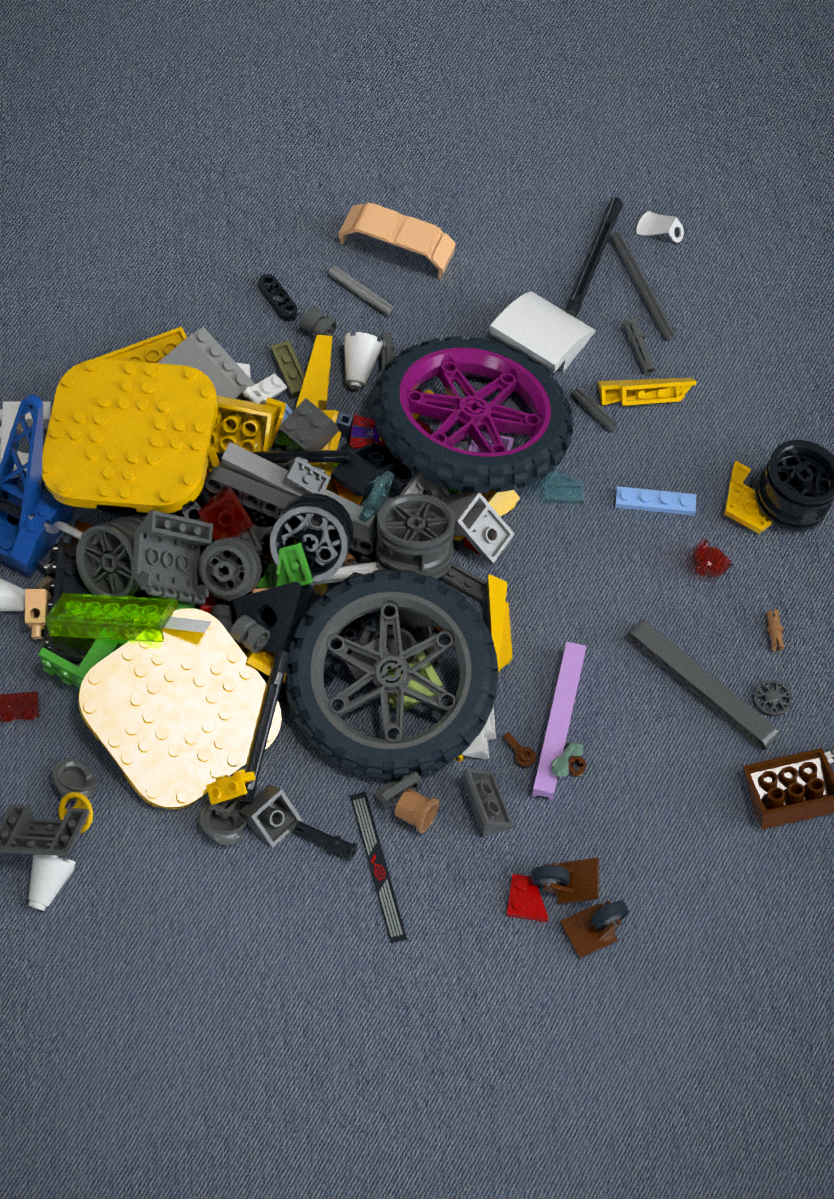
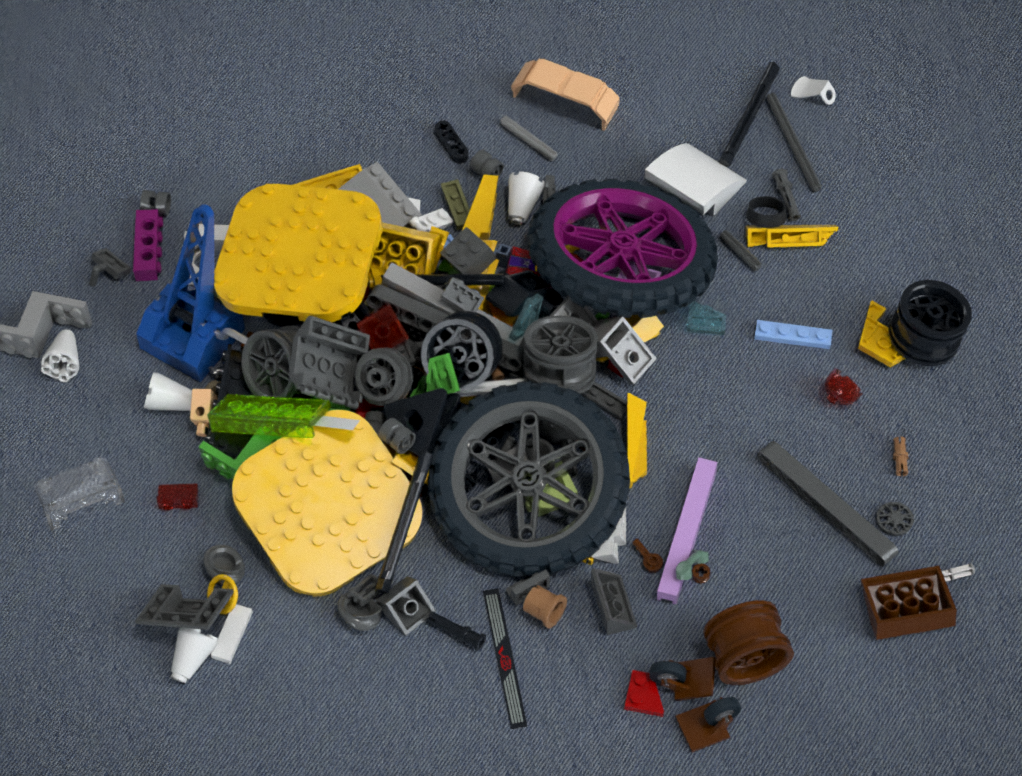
camera: 10 degrees right, 5 degrees down
(88, 854) = (231, 634): none -> white tile
(229, 787) = (367, 575): yellow bracket -> none
(619, 377) = (766, 221): none -> black tyre
(632, 841) = (748, 642): none -> reddish brown wheel

